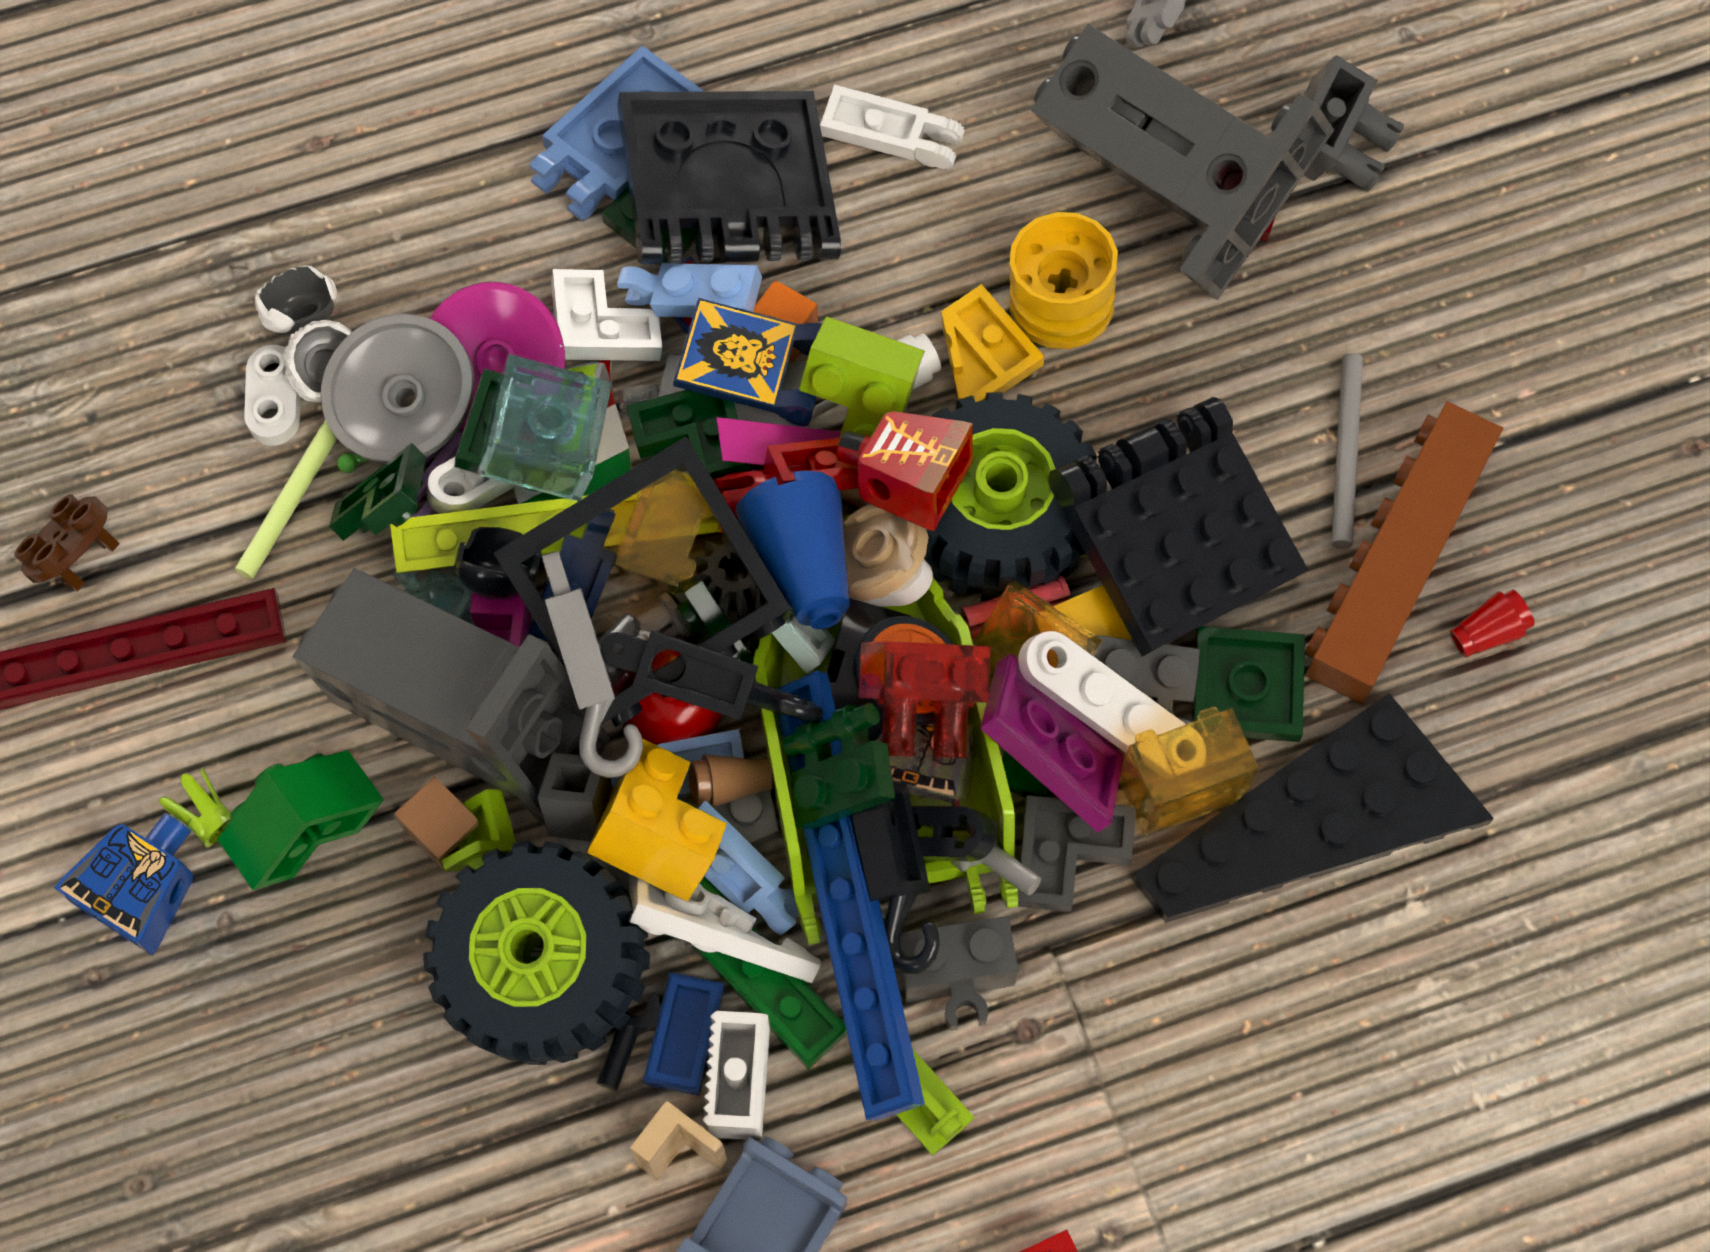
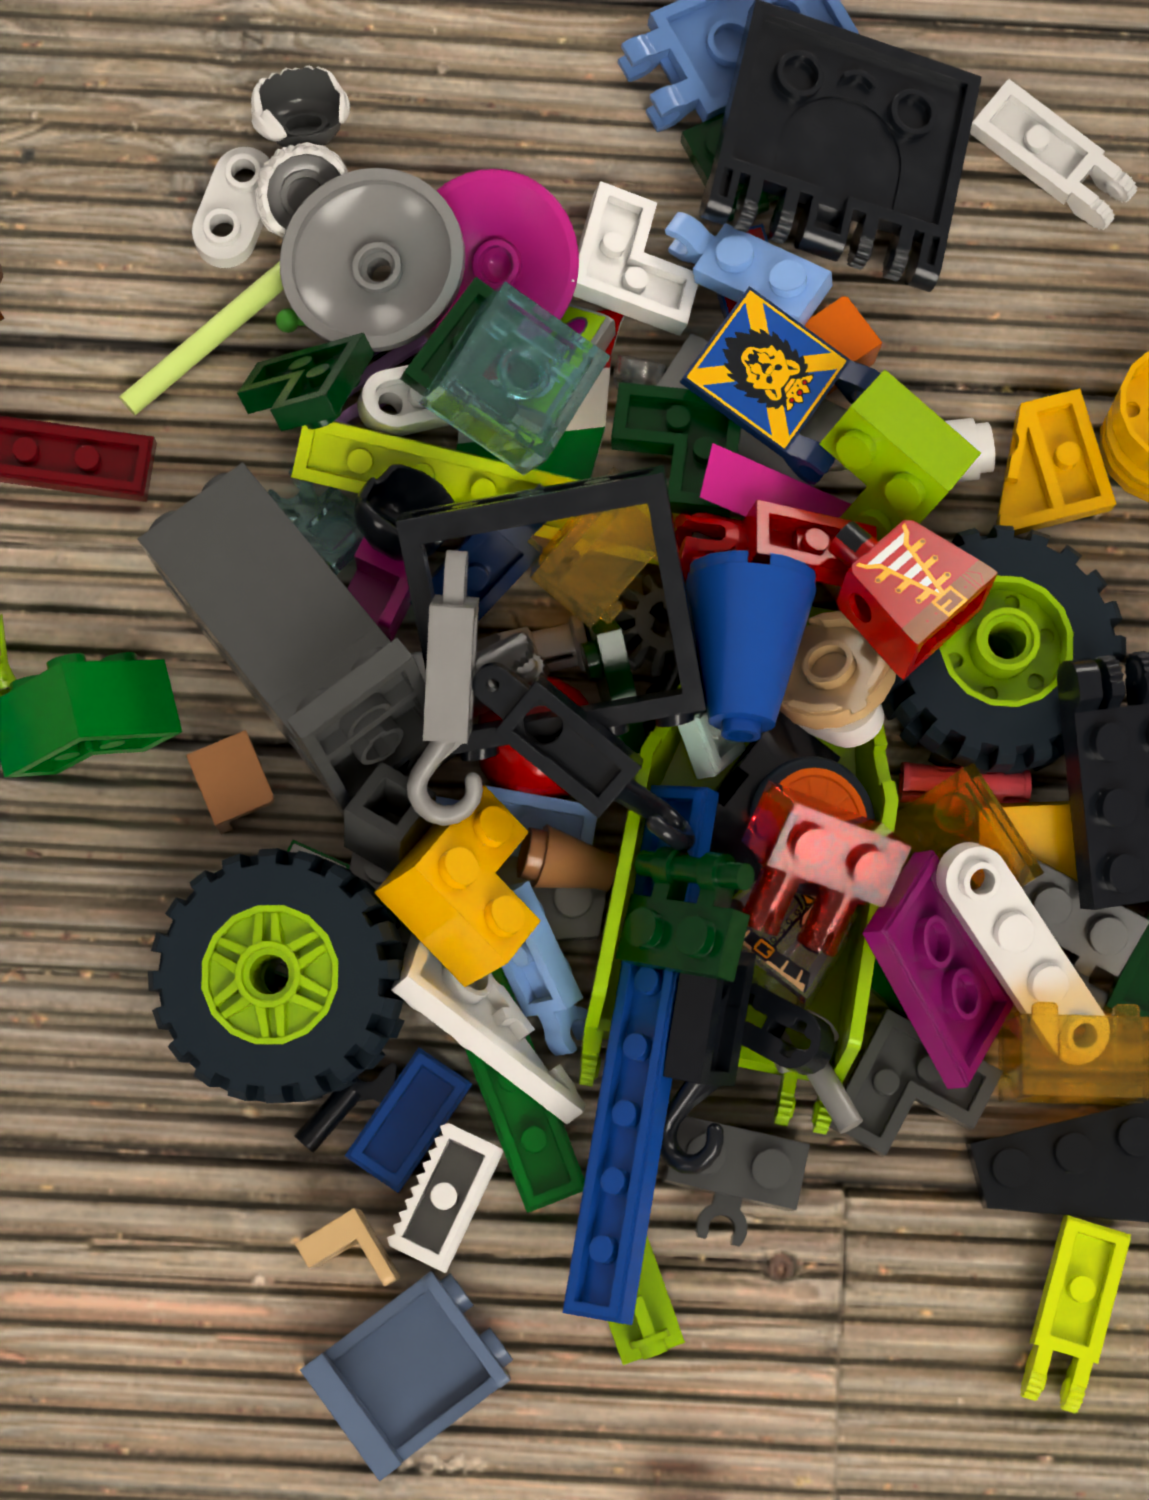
camera: 15 degrees right, 10 degrees up
(492, 832) = (281, 823): lime bracket -> none
(1268, 965) = (1075, 1307): none -> neon yellow hinge

